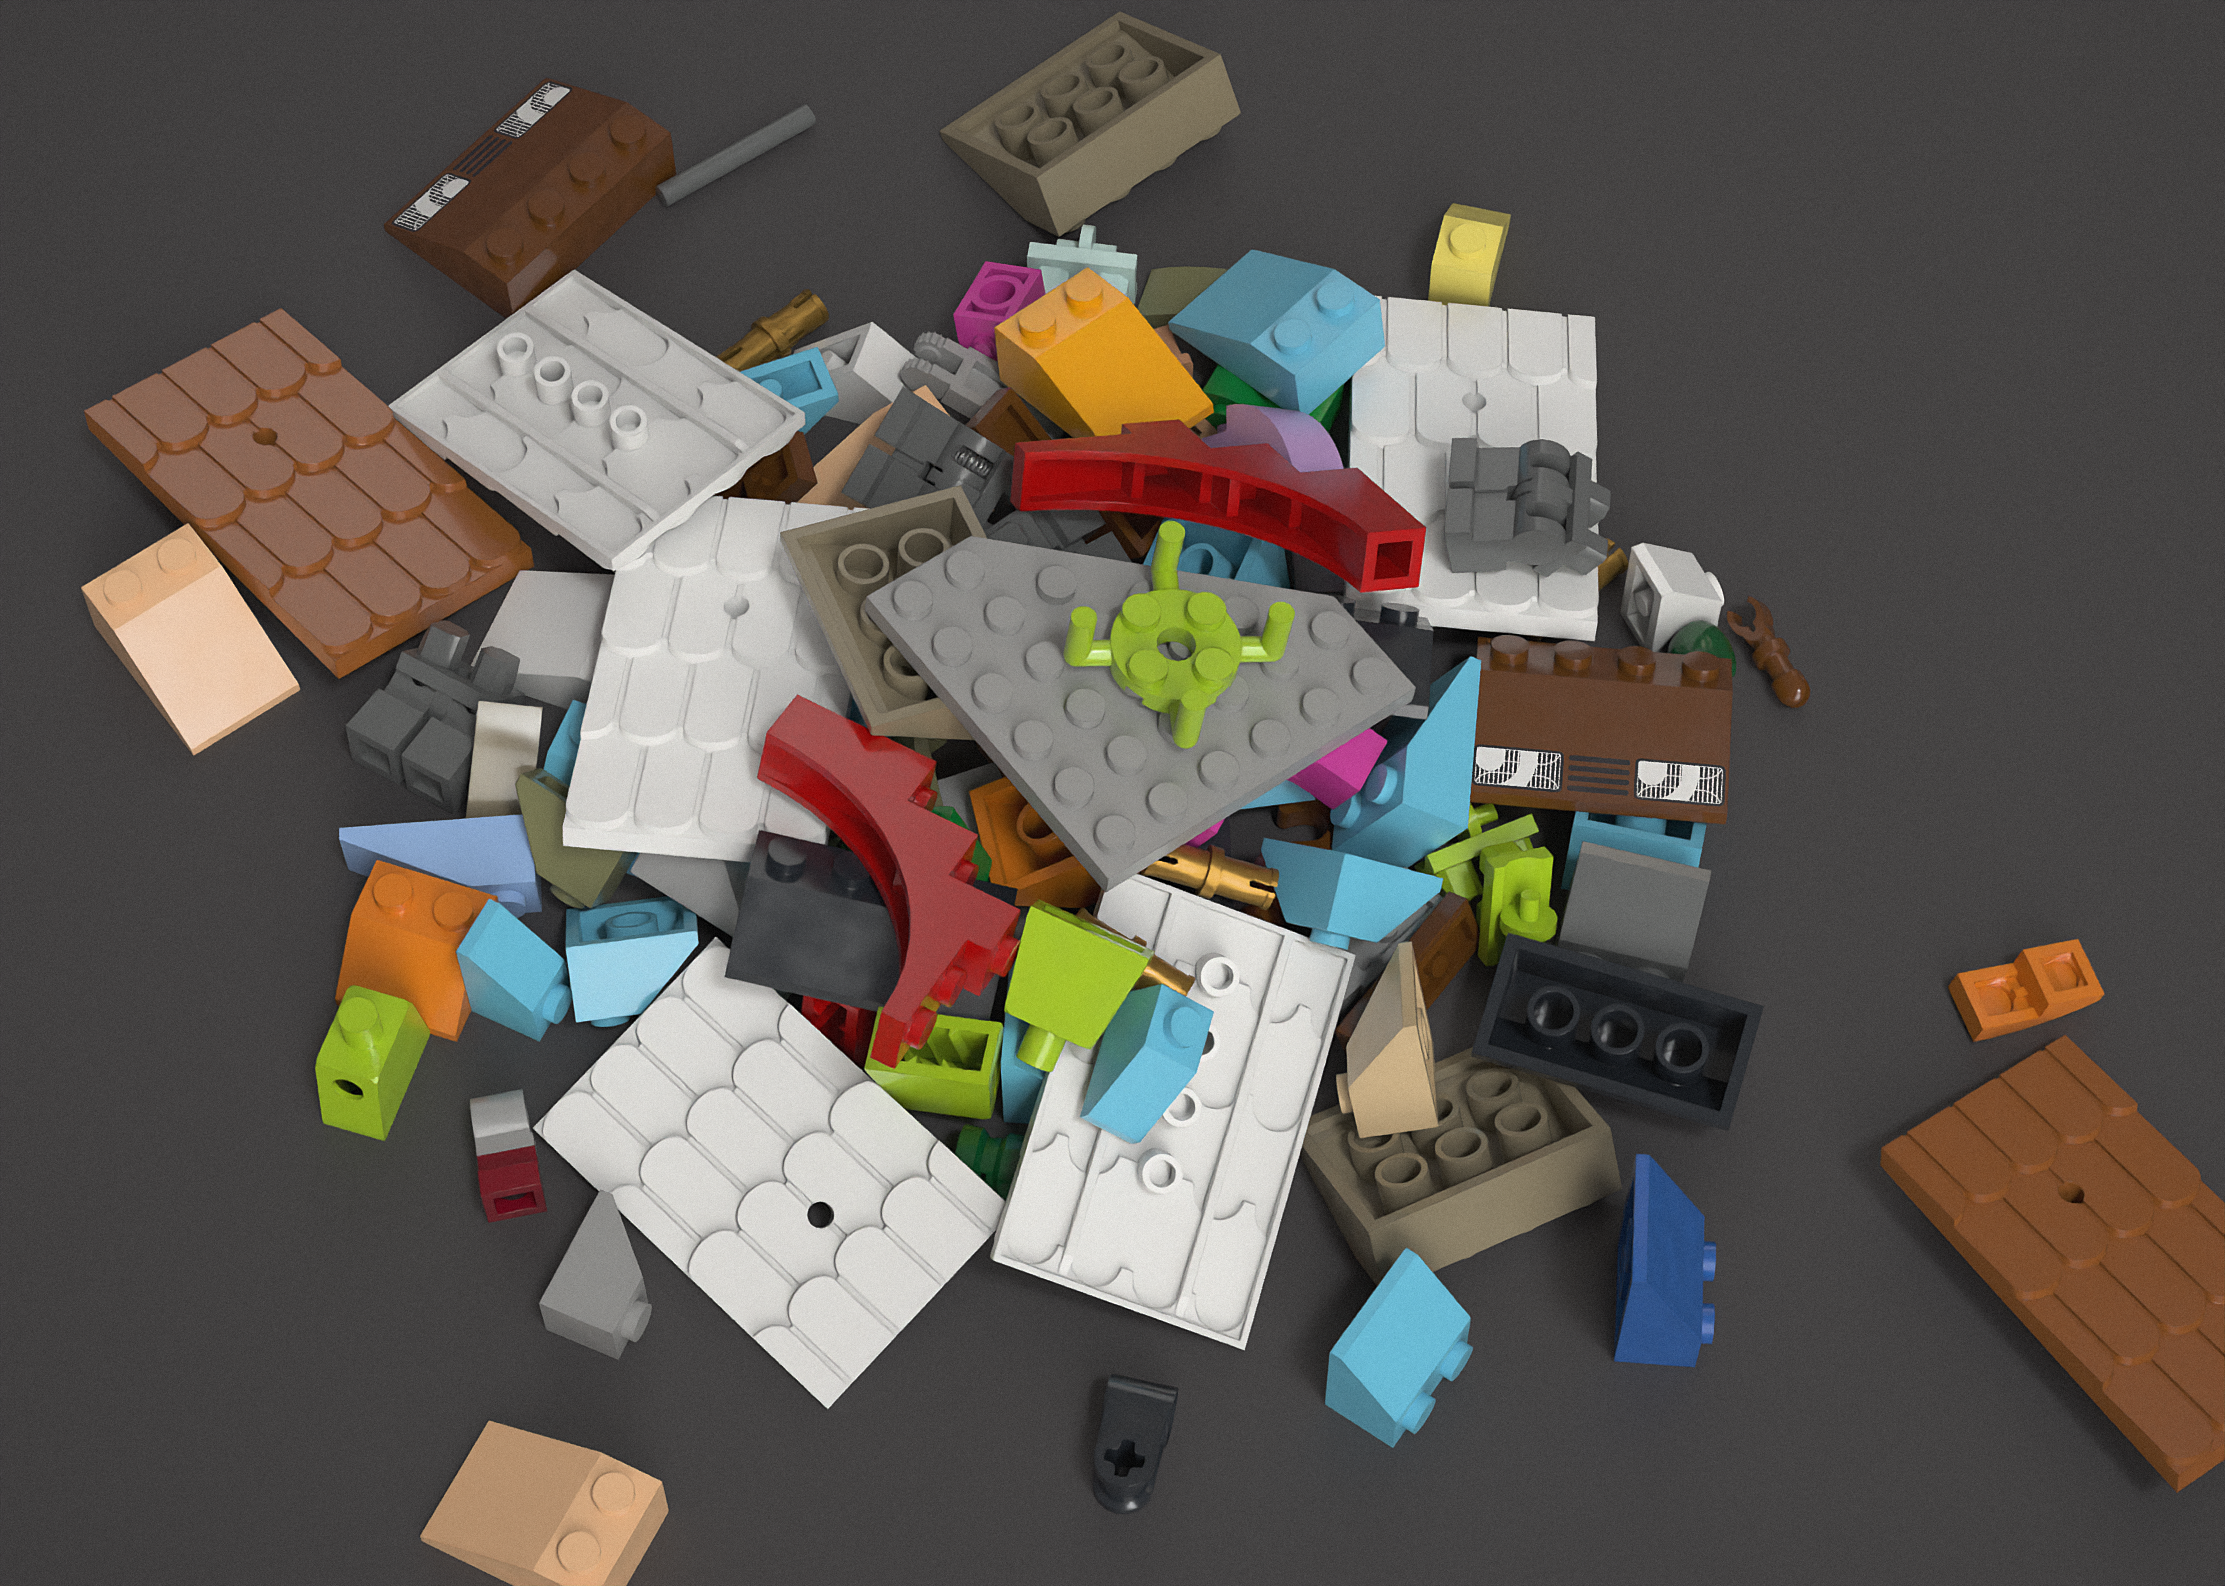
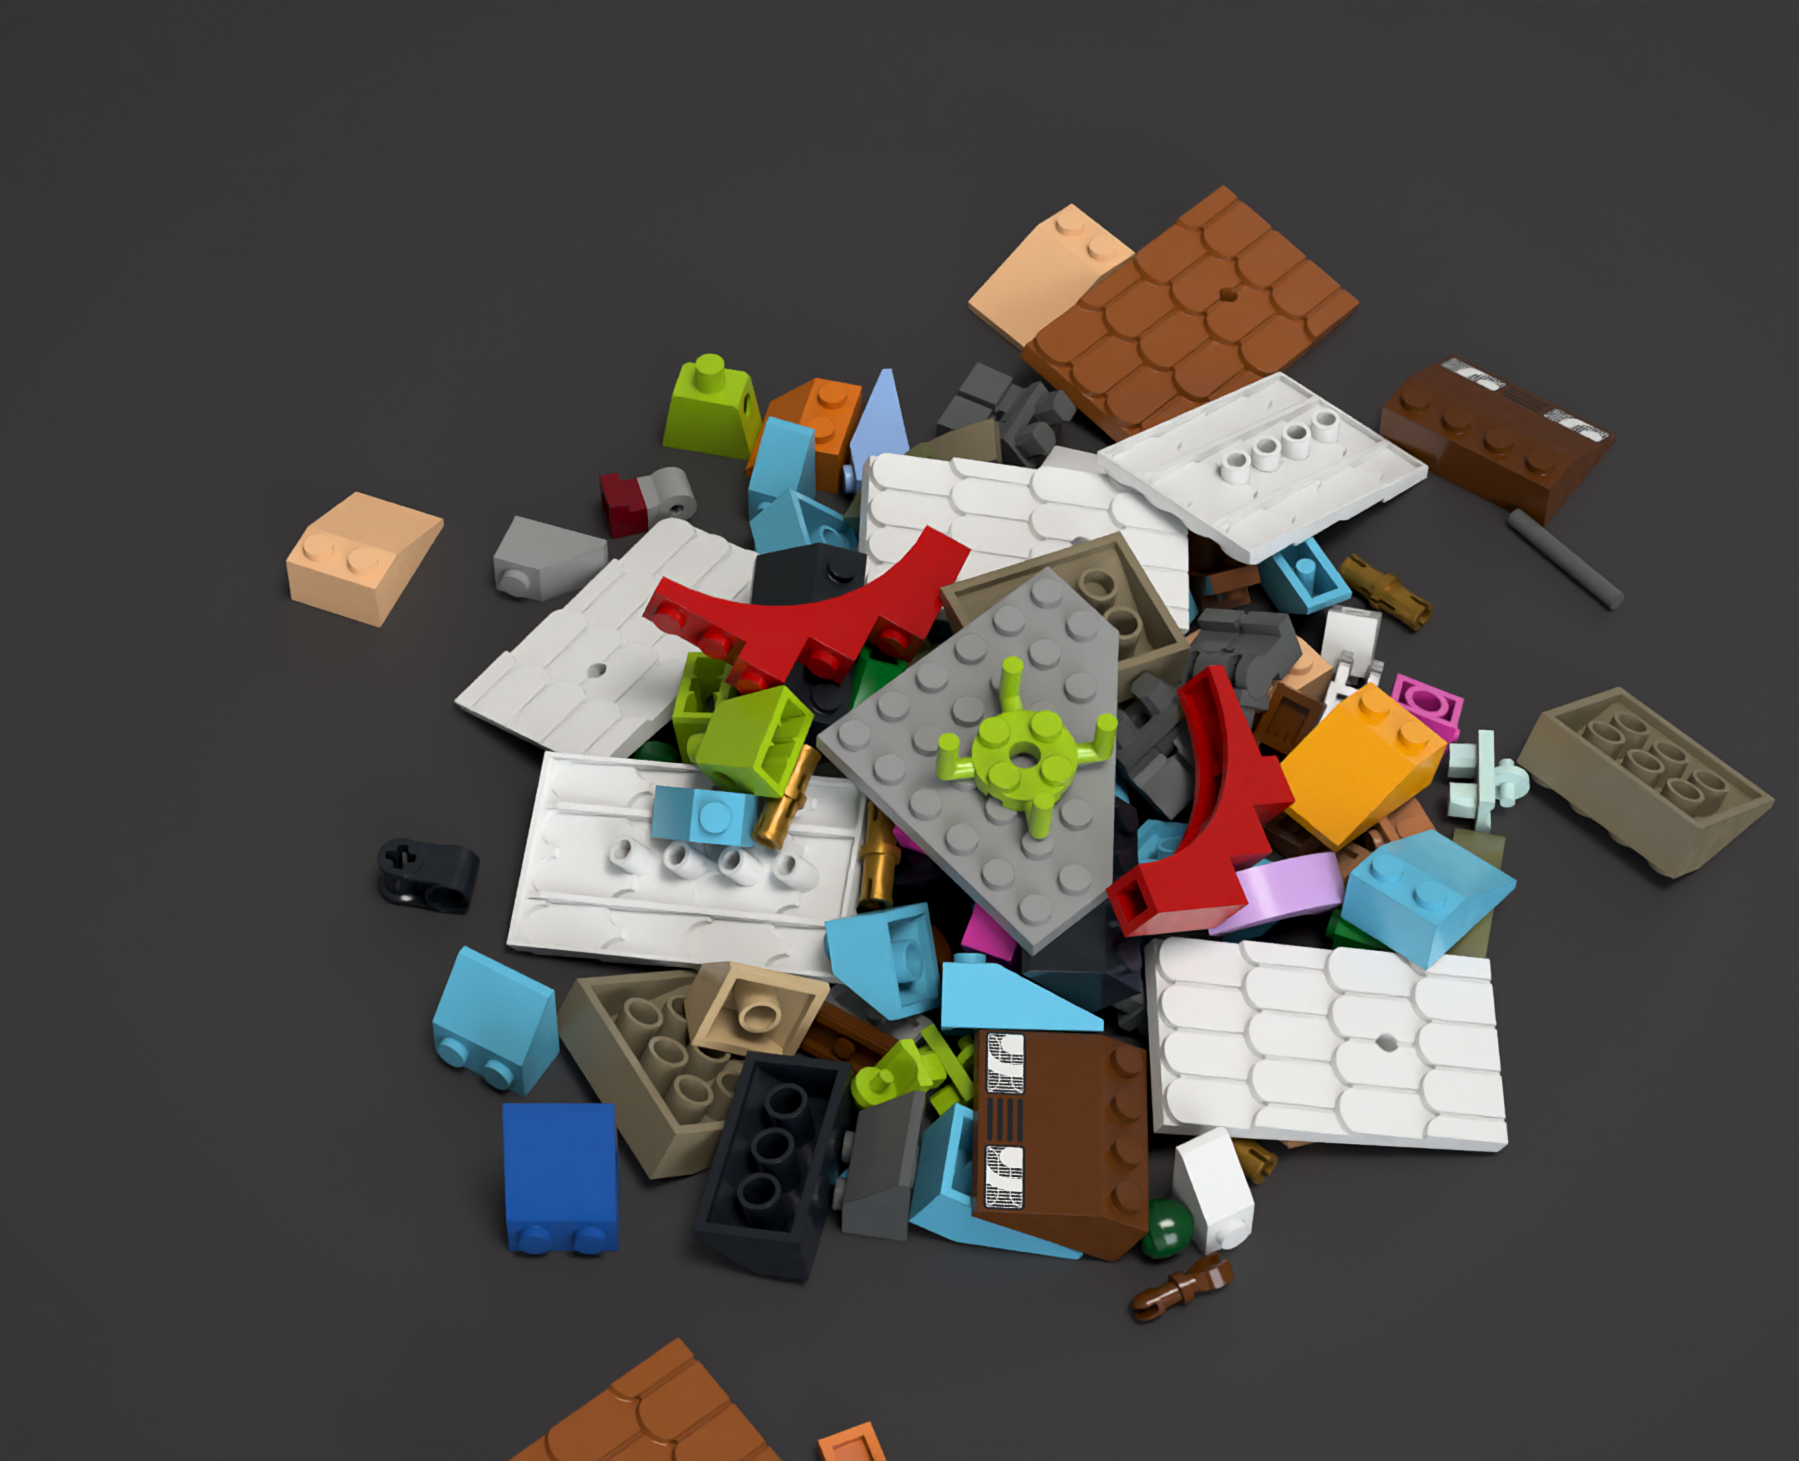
camera: 85 degrees right, 10 degrees down
(1467, 255) = (1562, 1049): light yellow slope -> none
(1523, 508) = (1251, 1043): dark grey hips -> none

